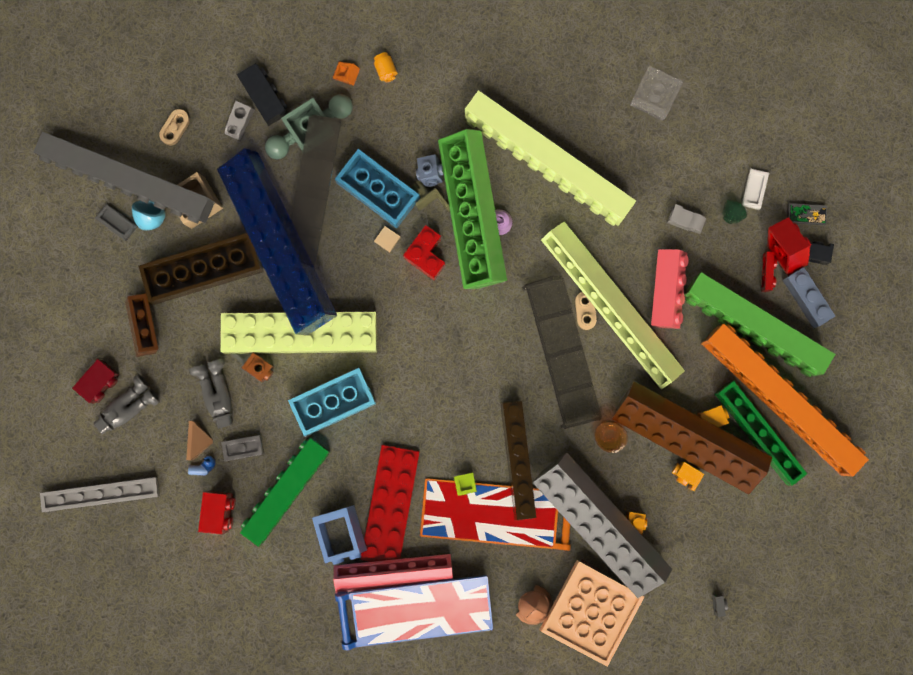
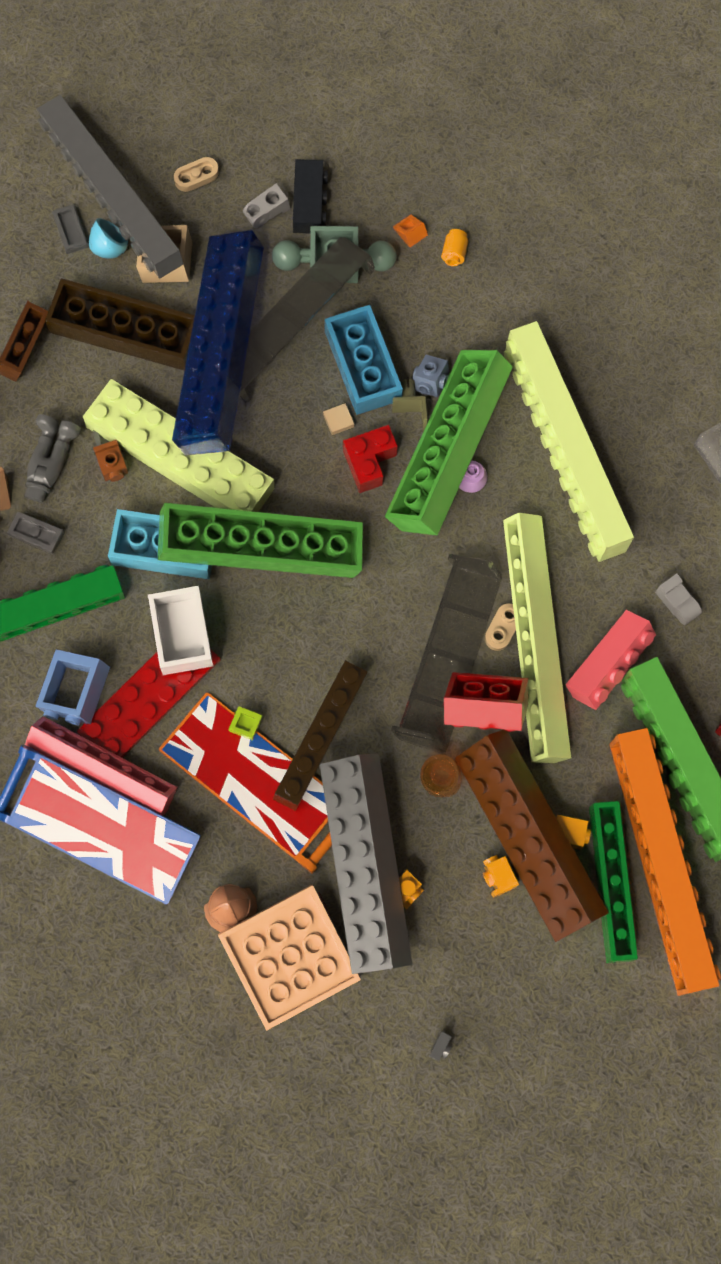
camera: 30 degrees right, 10 degrees down
(385, 454) = (180, 630): none -> white piece
(396, 361) = (259, 540): none -> bright green brick
(611, 372) = (486, 701): none -> red brick

